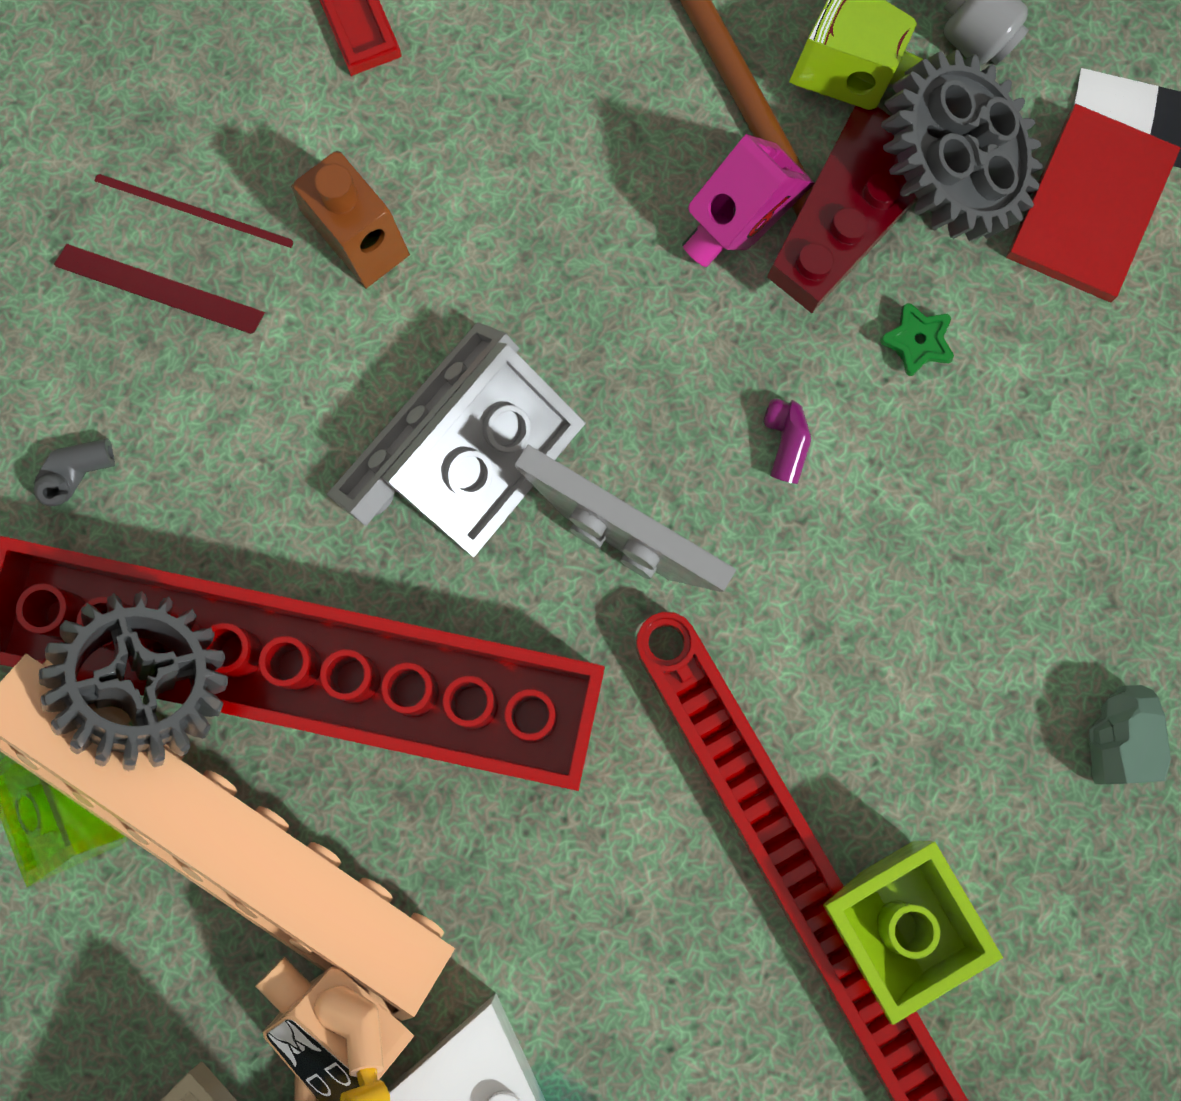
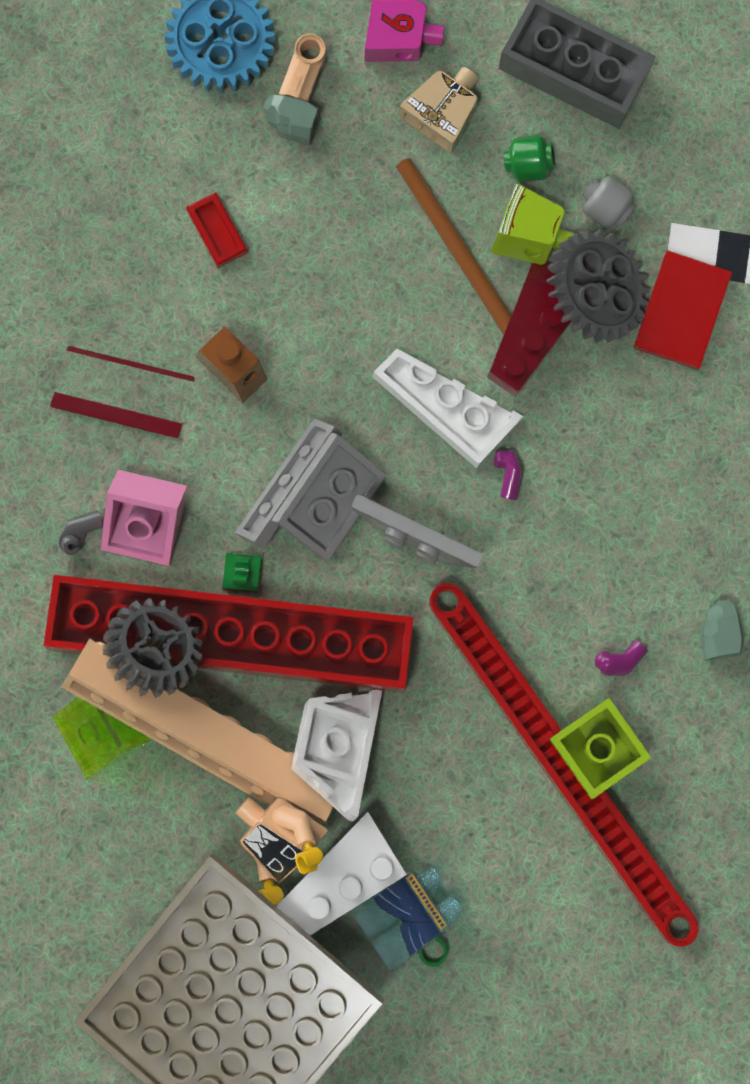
camera: 10 degrees left, 0 degrees up
(174, 454) = (142, 517): none -> bright pink slope
(330, 562) = (241, 572): none -> green tile
(449, 883) = (336, 747): none -> white wing
(712, 338) = (456, 414): none -> white wing
(755, 181) = (469, 330): dark pink torso -> none
(915, 354) = (581, 414): green plate -> none
(948, 776) = (620, 663): none -> magenta arm

